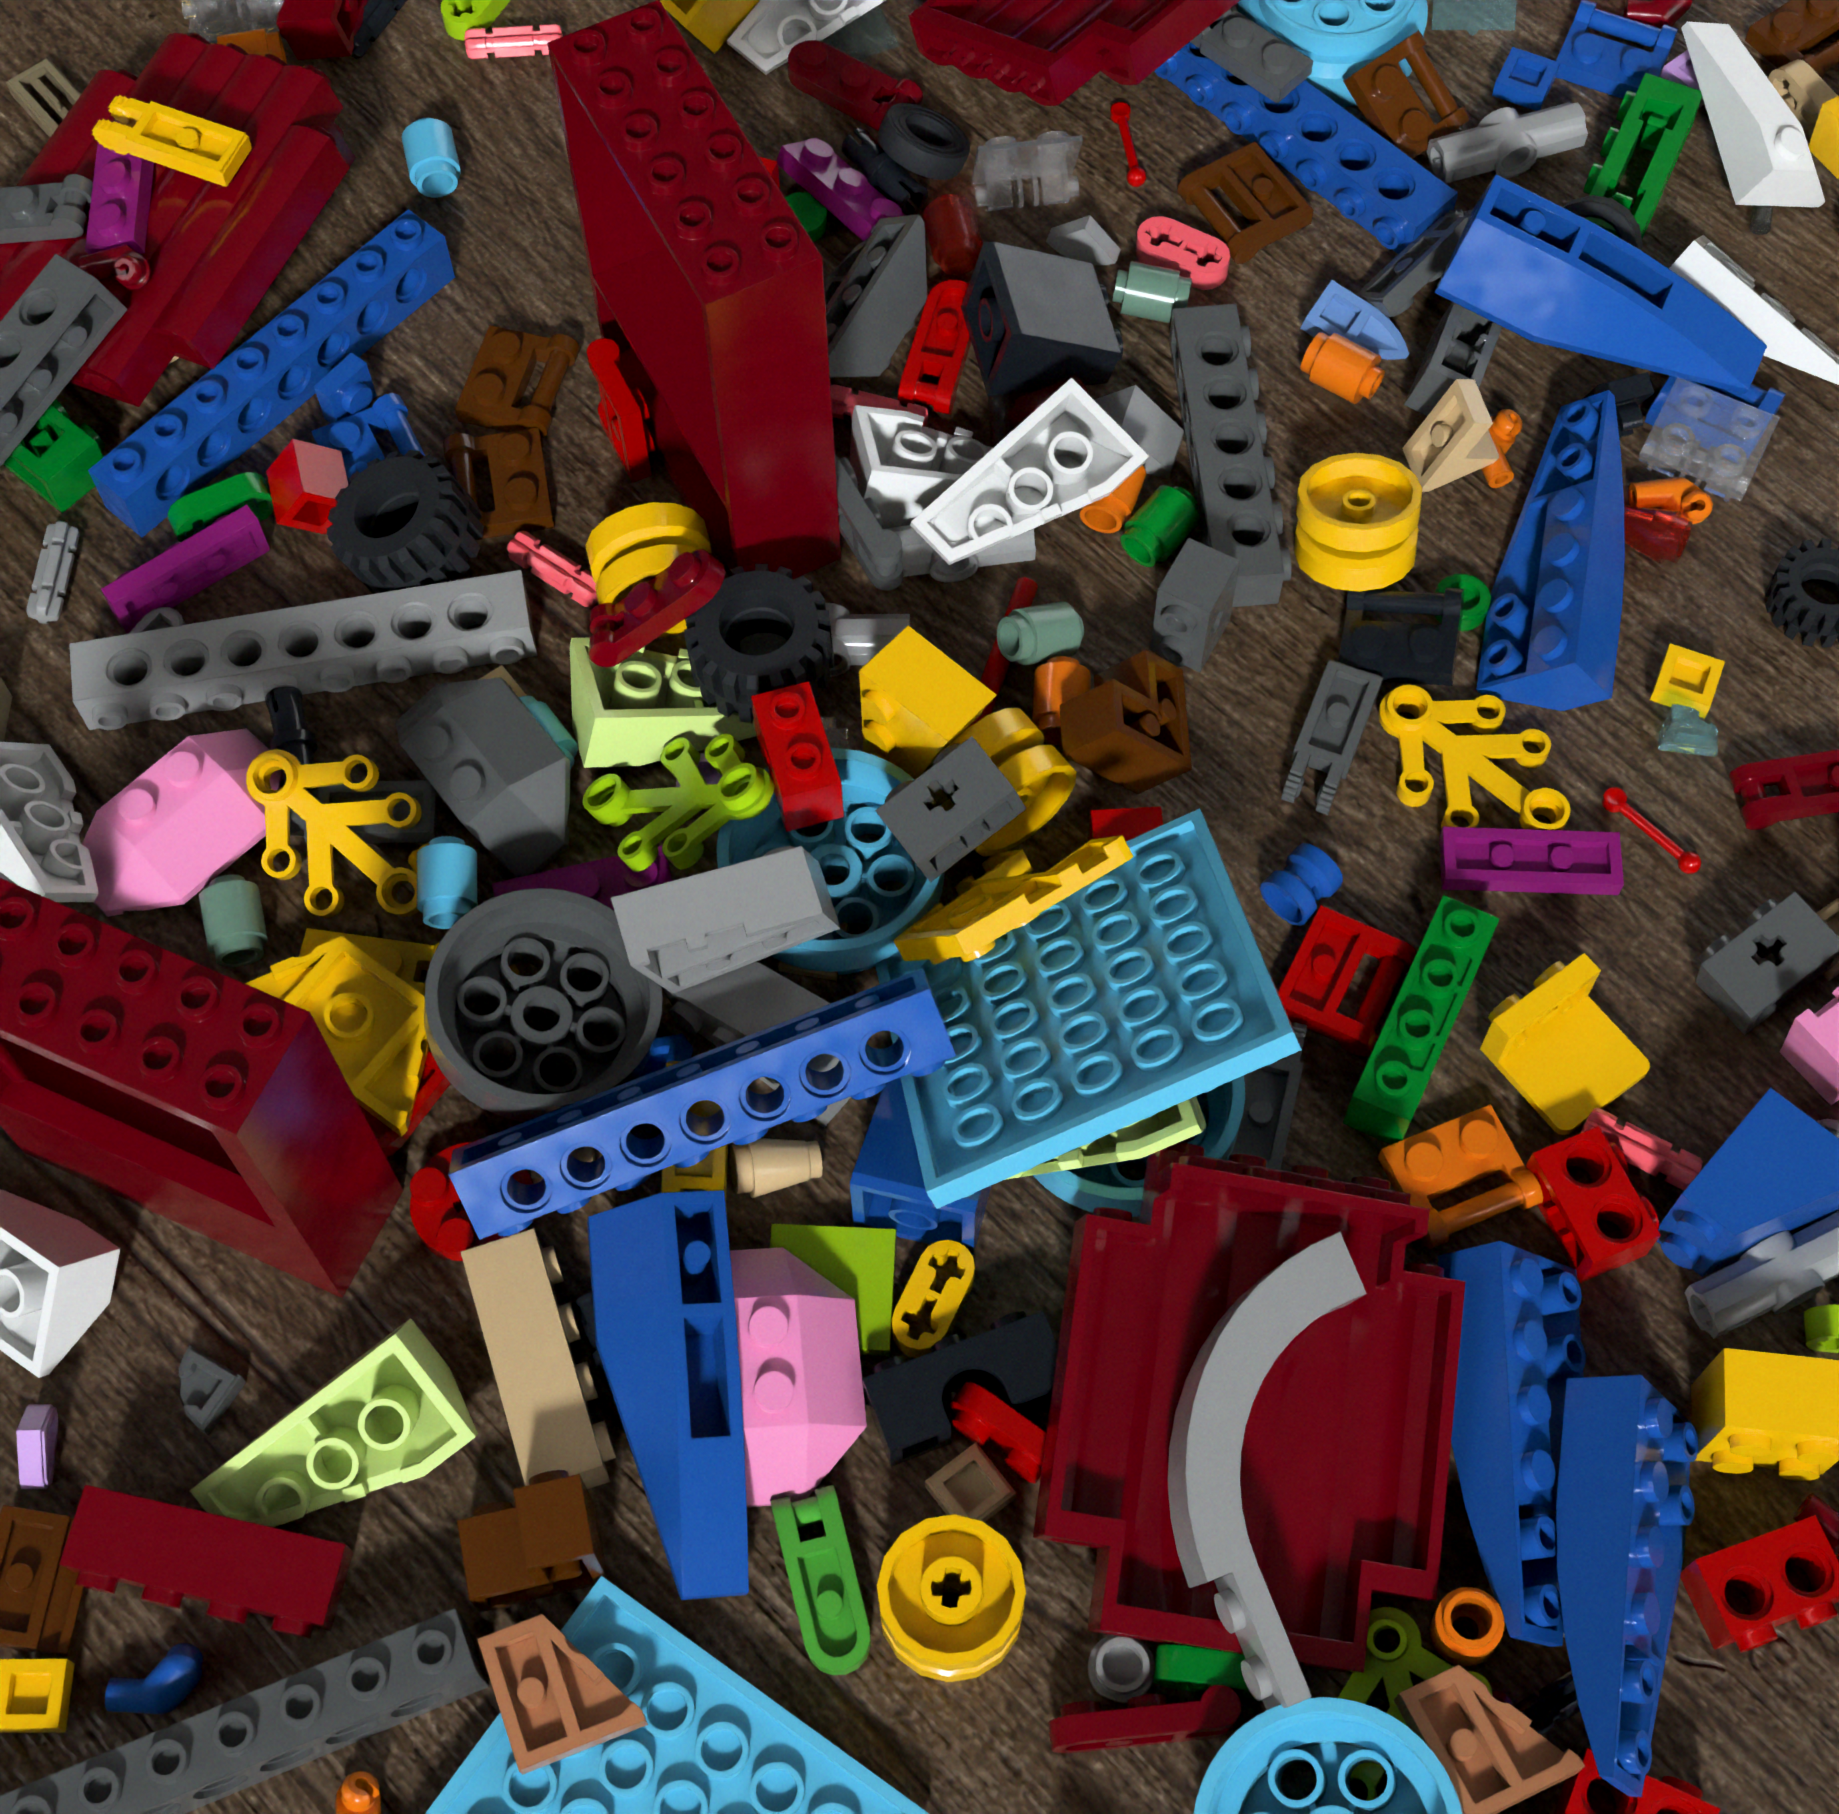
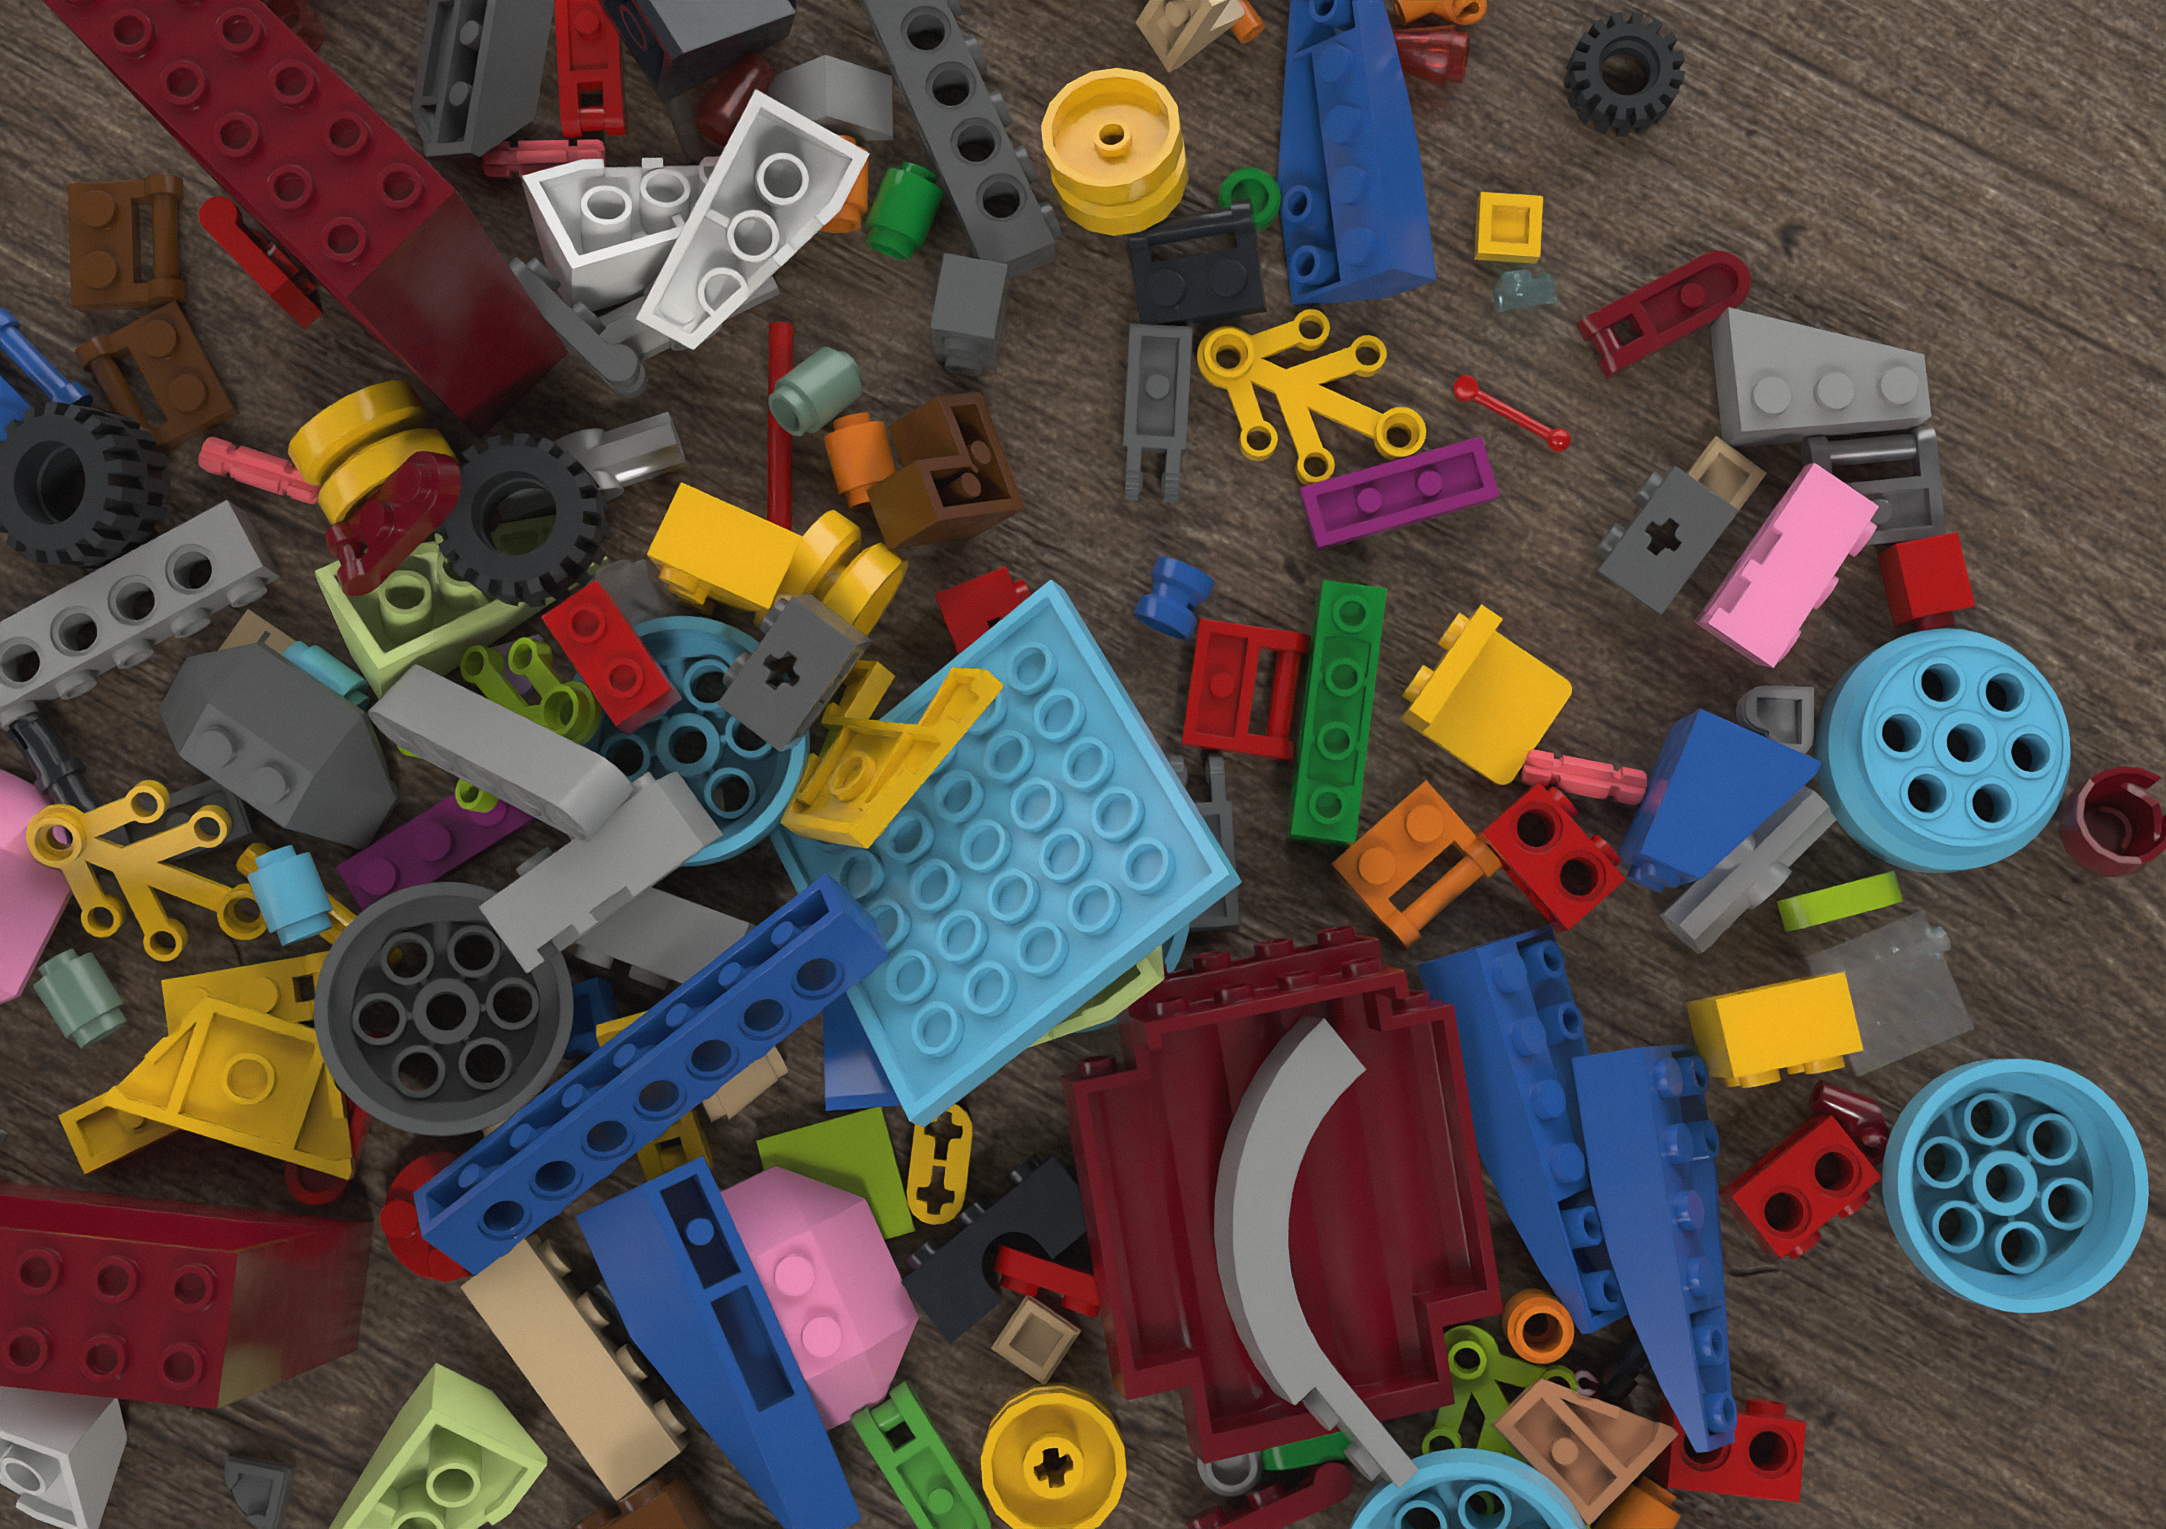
camera: 25 degrees left, 20 degrees up
(676, 799) = (501, 752): none -> light grey beam

